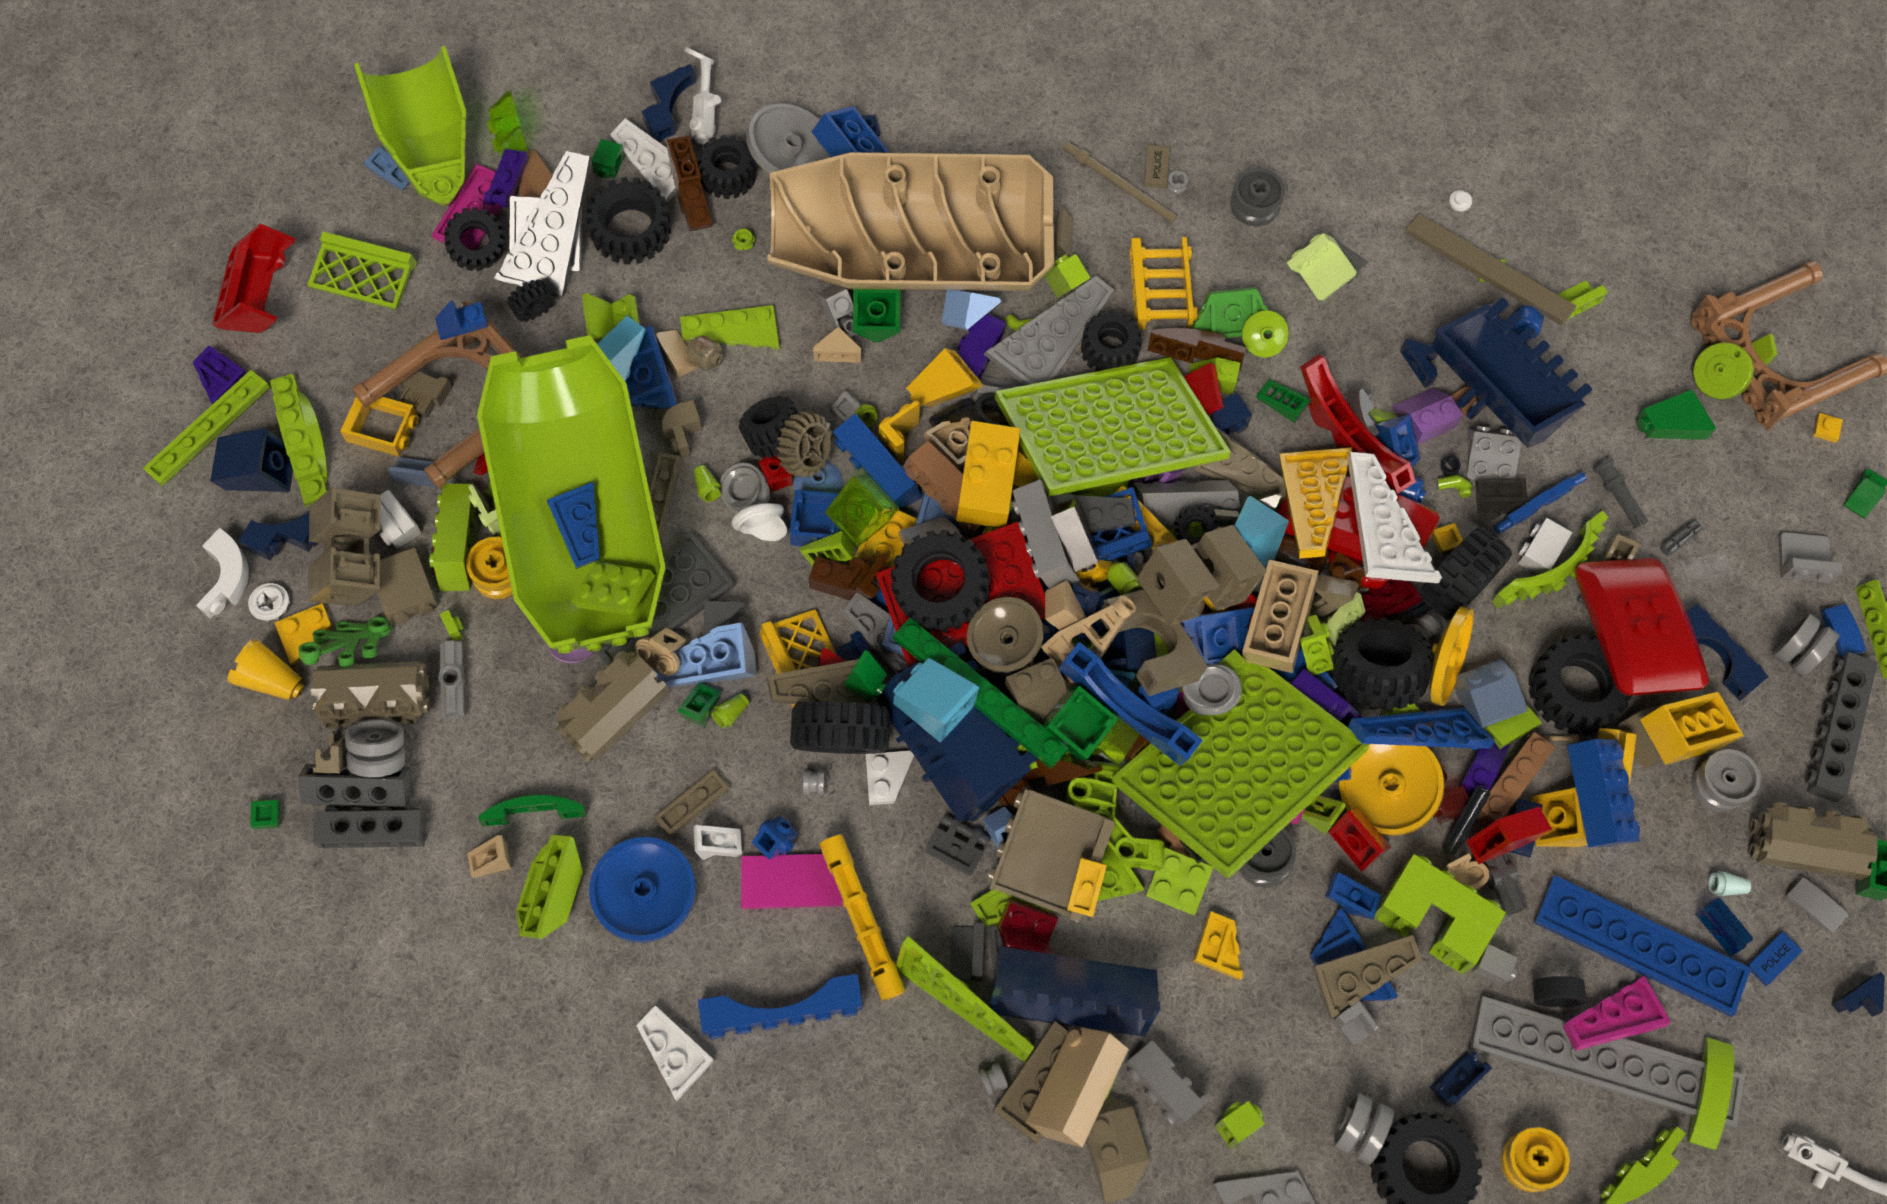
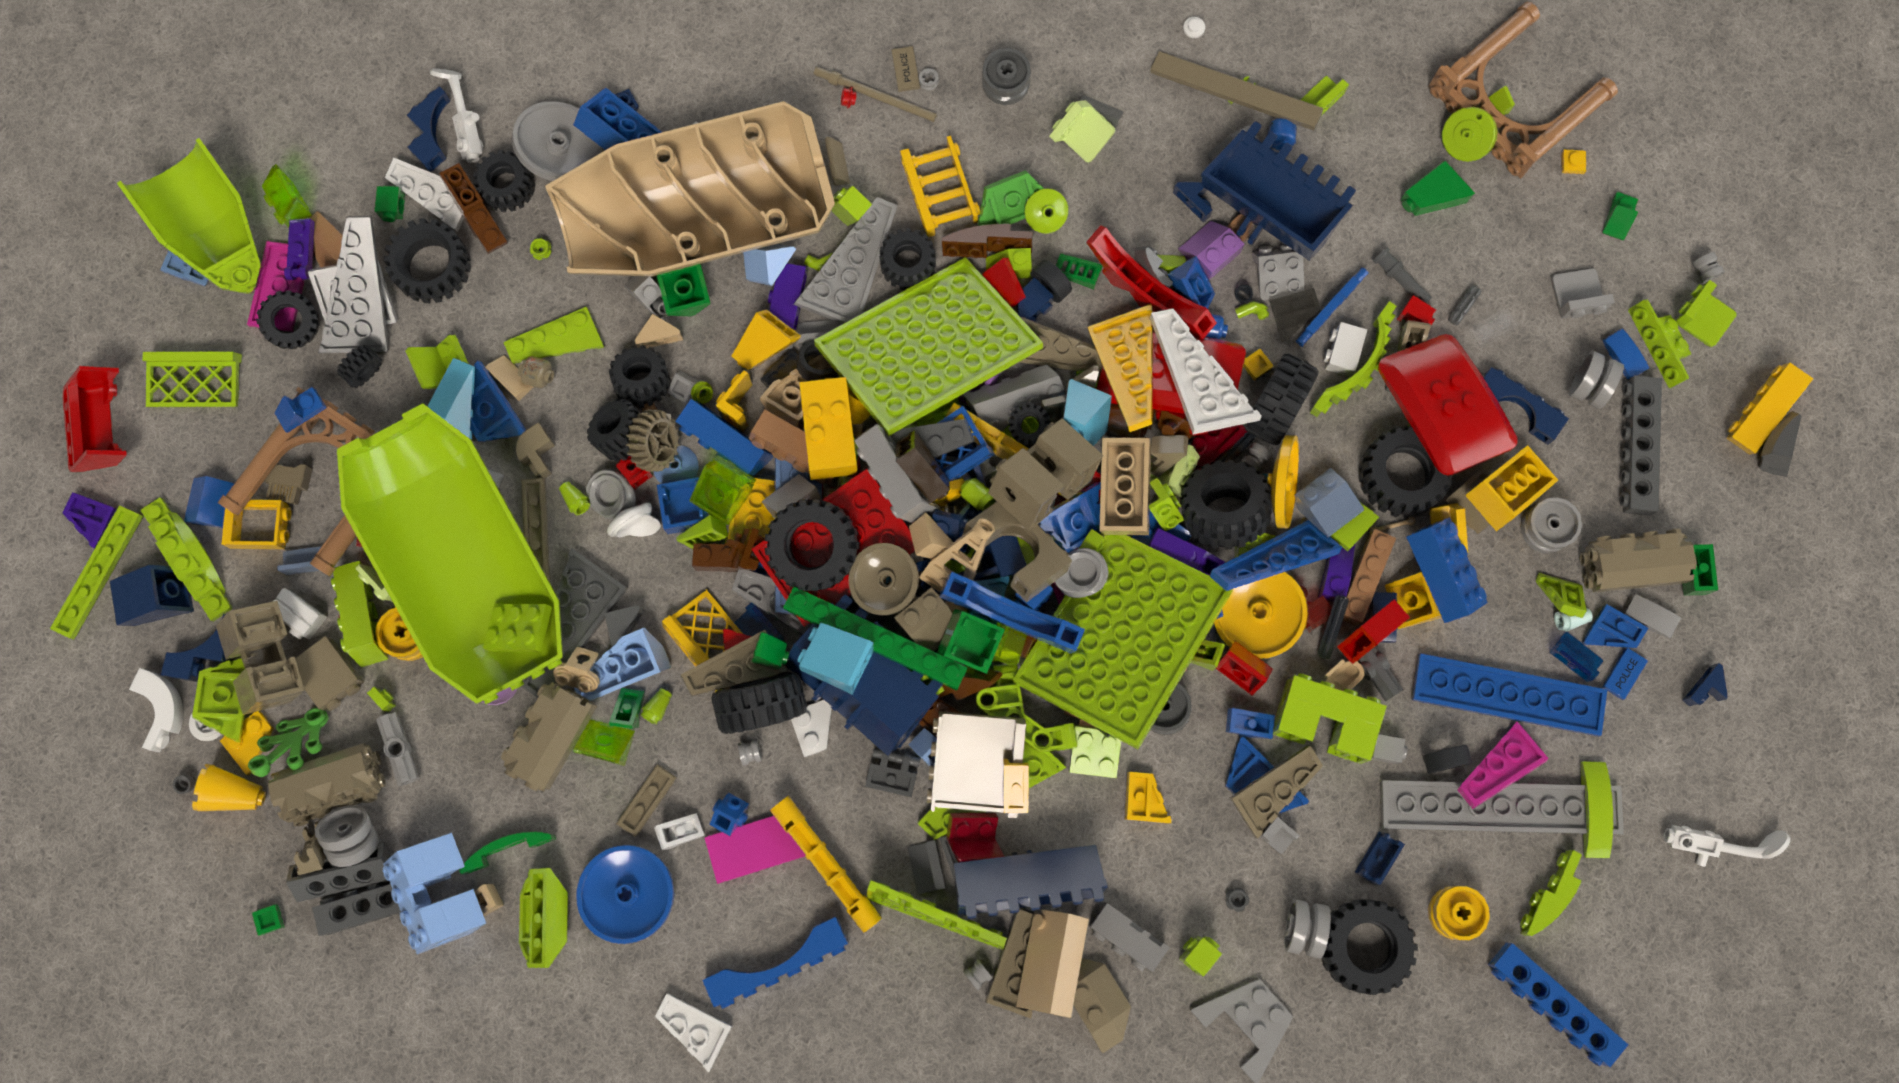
camera: 10 degrees left, 10 degrees up
(221, 659) = (182, 788): none -> dark grey hinge
(286, 582) = (217, 700): none -> lime wing
(335, 391) = (203, 500): none -> blue slope
(439, 858) = (411, 873): none -> light blue piece
(577, 523) = (467, 574): blue wing -> none
(665, 733) = (605, 742): none -> clear neon green slope
(810, 368) = (634, 362): none -> black tyre
(1092, 177) = (848, 97): none -> red plate
(1255, 398) = (1052, 279): none -> black tyre
(1298, 1074) = (1243, 899): none -> dark grey plate
(1630, 527) = (1417, 311): none -> red brick
(1724, 856) = (1565, 595): none -> lime wing
(1773, 909) = (1615, 630): none -> blue wing

